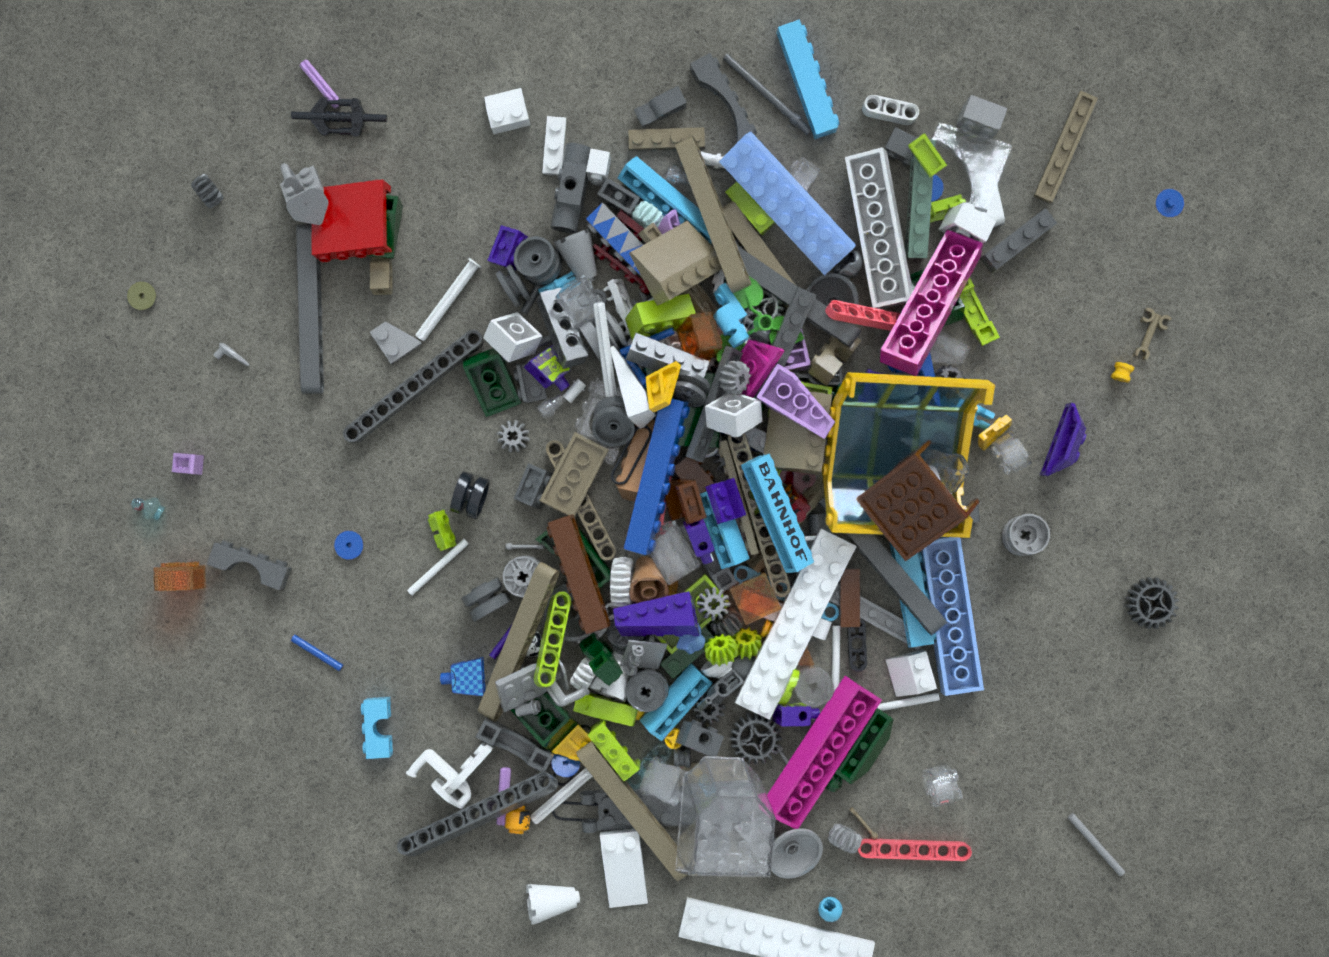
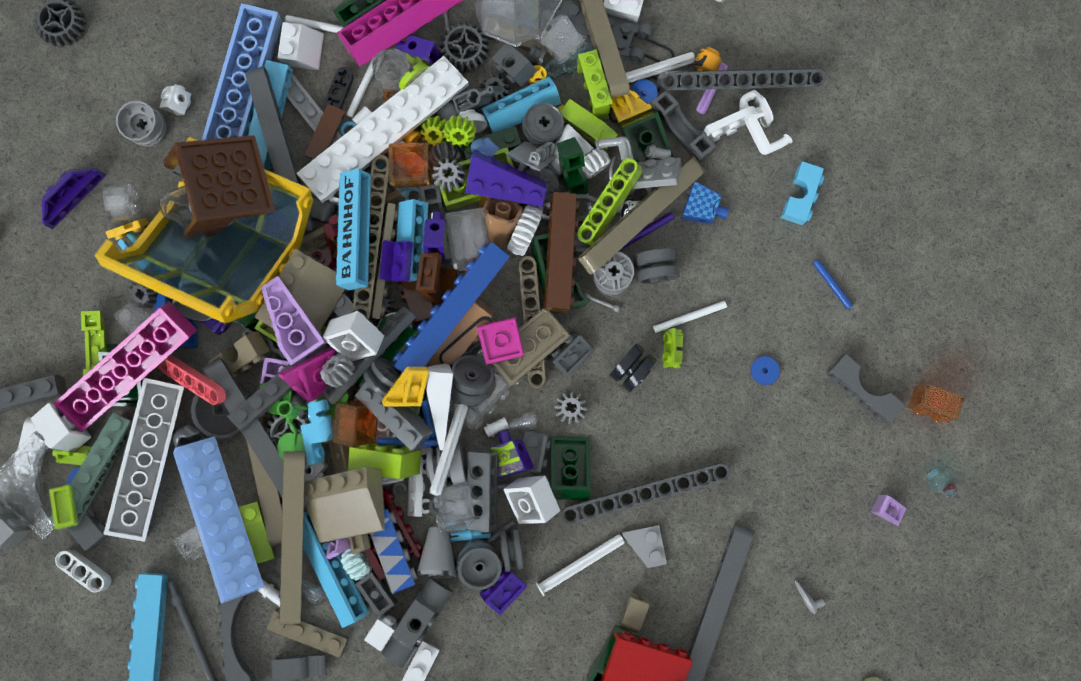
camera: 155 degrees left, 5 degrees down
(600, 468) = (500, 340): none -> dark pink tile
(1005, 572) = (175, 99): none -> white brick

